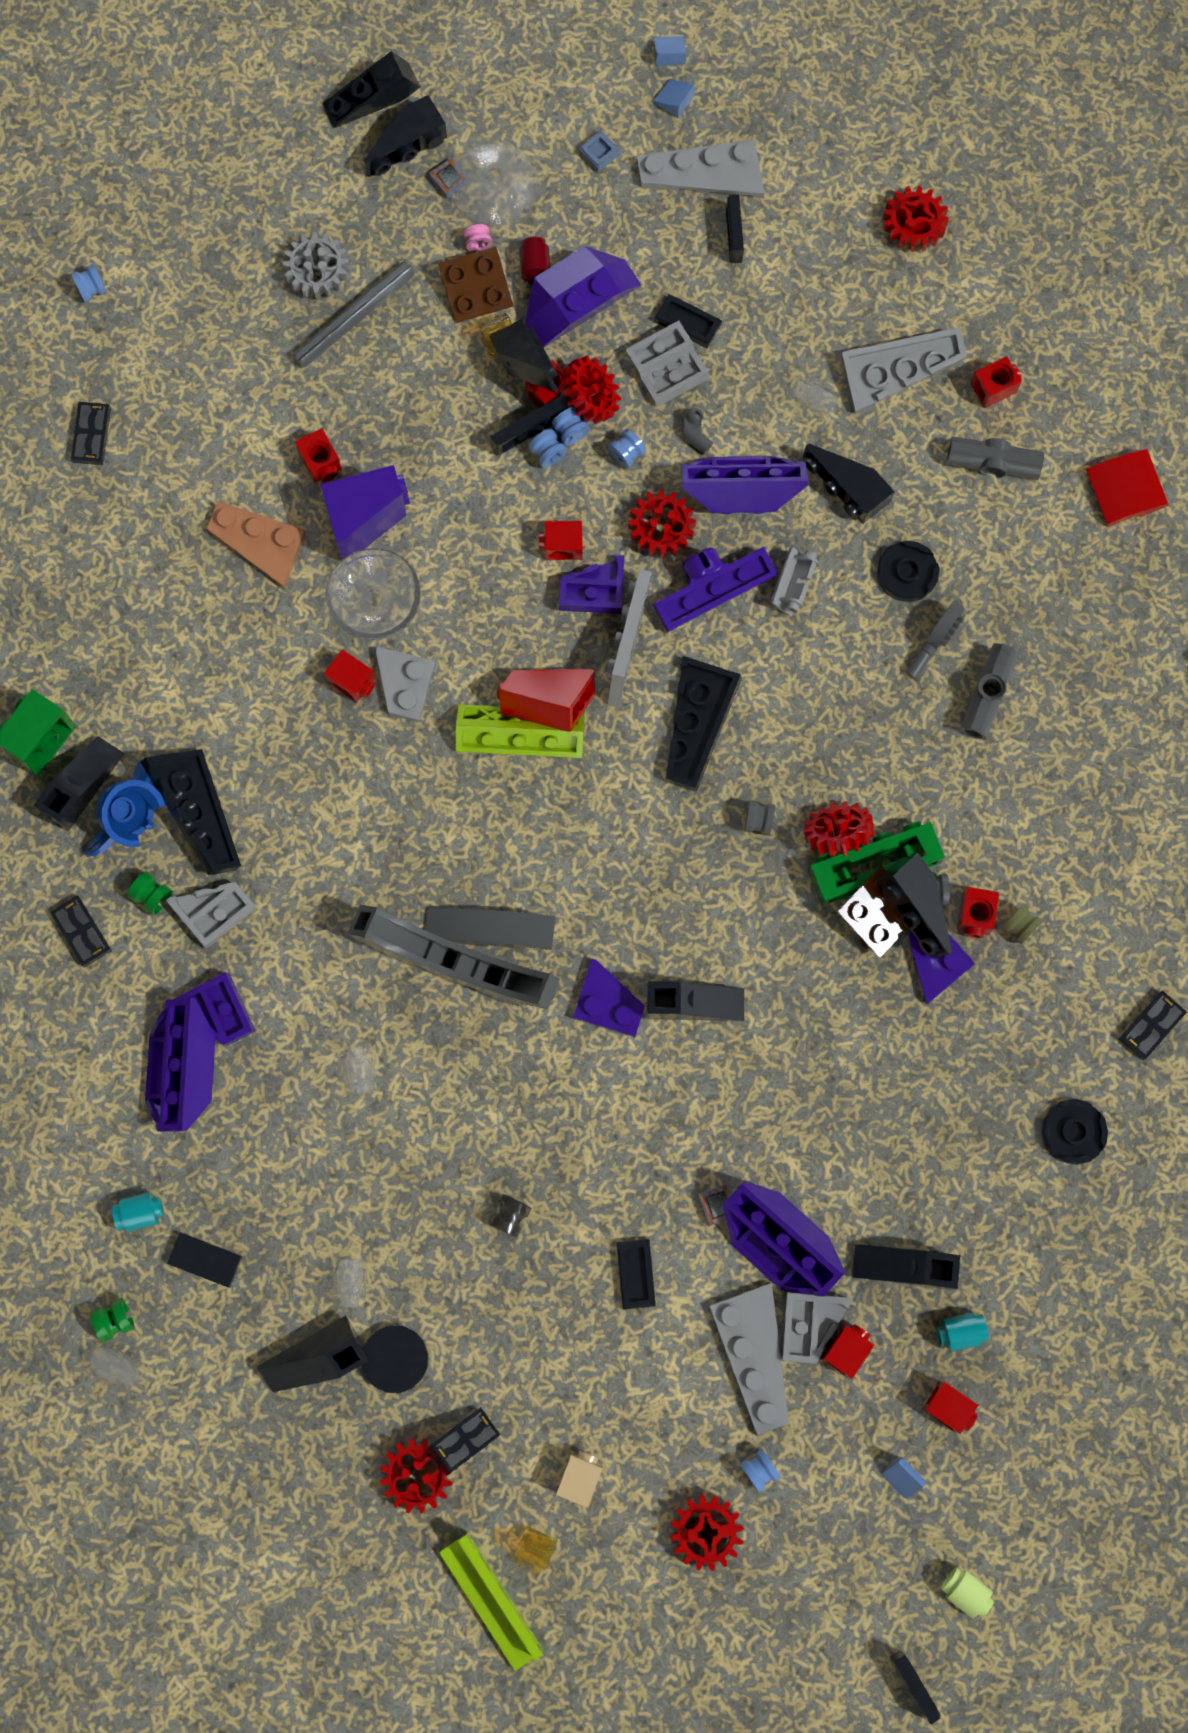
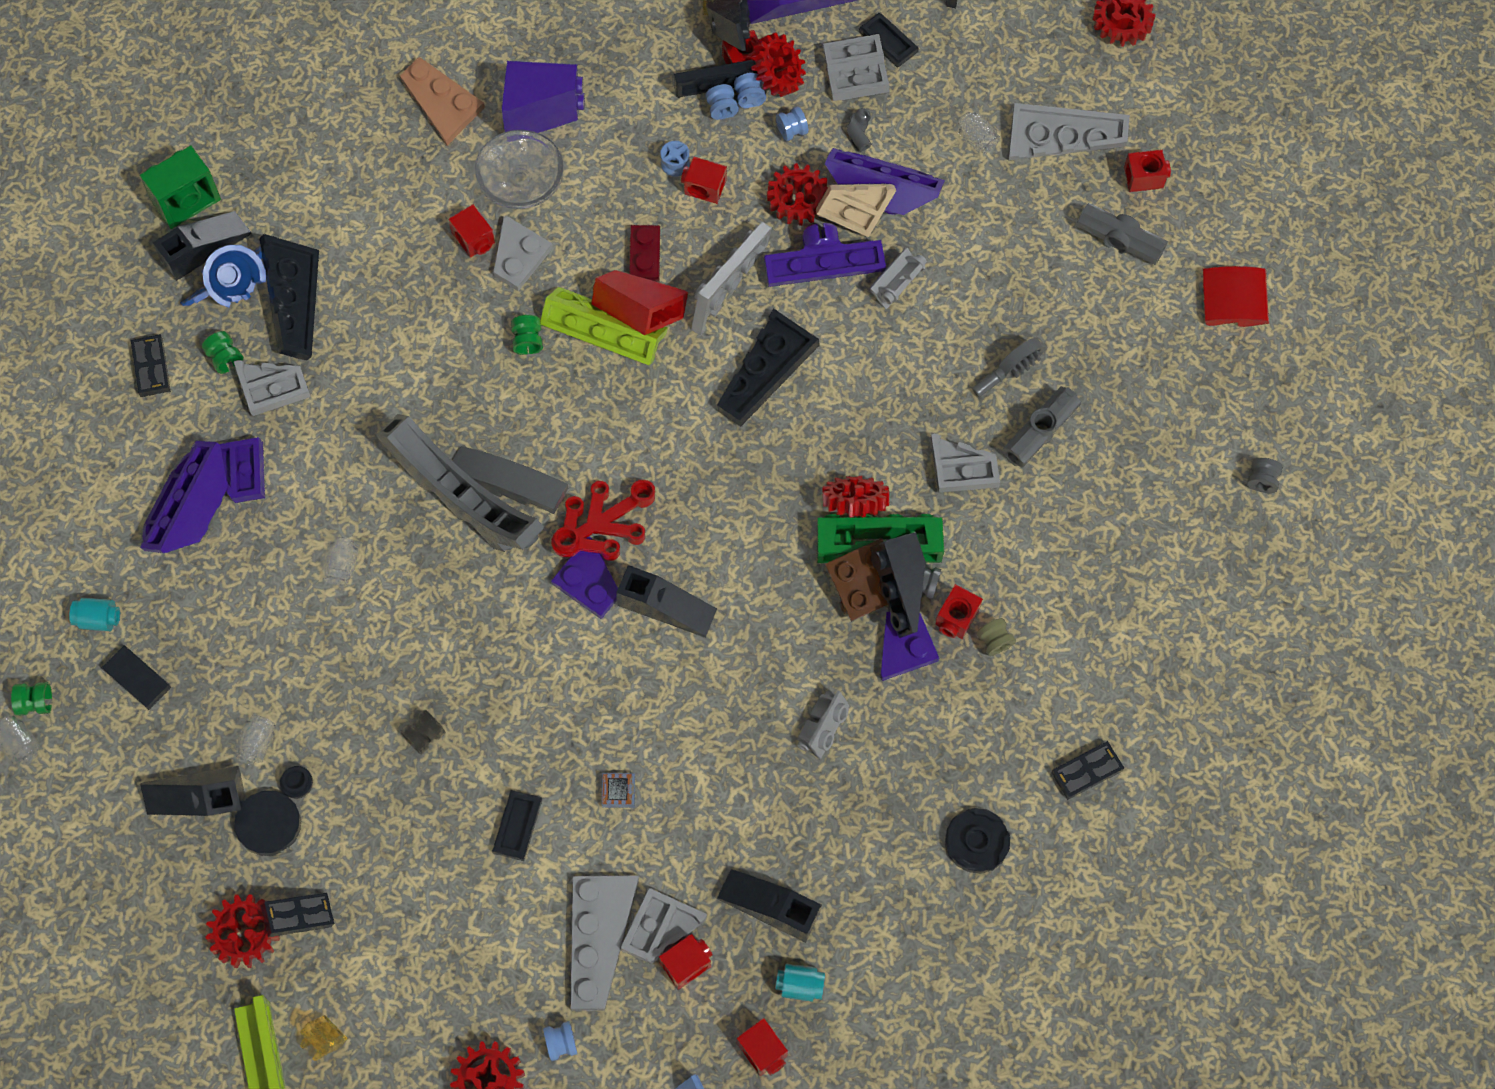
camera: 20 degrees right, 10 degrees down
(314, 445) = (520, 37): red brick -> none
(406, 1308) = (296, 782): none -> black plate
(448, 767) = (526, 332): none -> green wheel
(521, 520) = (674, 151): none -> medium blue wheel
(531, 638) = (645, 251): none -> dark red plate
(580, 1478) = (389, 987): tan brick -> none
(594, 589) = (716, 228): dark purple wing -> none
(598, 941) = (601, 522): none -> red plant
(727, 520) = (856, 205): none -> tan wing
(759, 818) = (788, 466): dark grey wheel -> none
(781, 1241) = (660, 836): dark purple wedge -> none
(855, 484) = (986, 215): black slope -> none
(889, 1081) = (831, 711): none -> light grey hinge
(899, 575) = (998, 302): black tile -> none
(927, 759) = (963, 467): none -> light grey wing

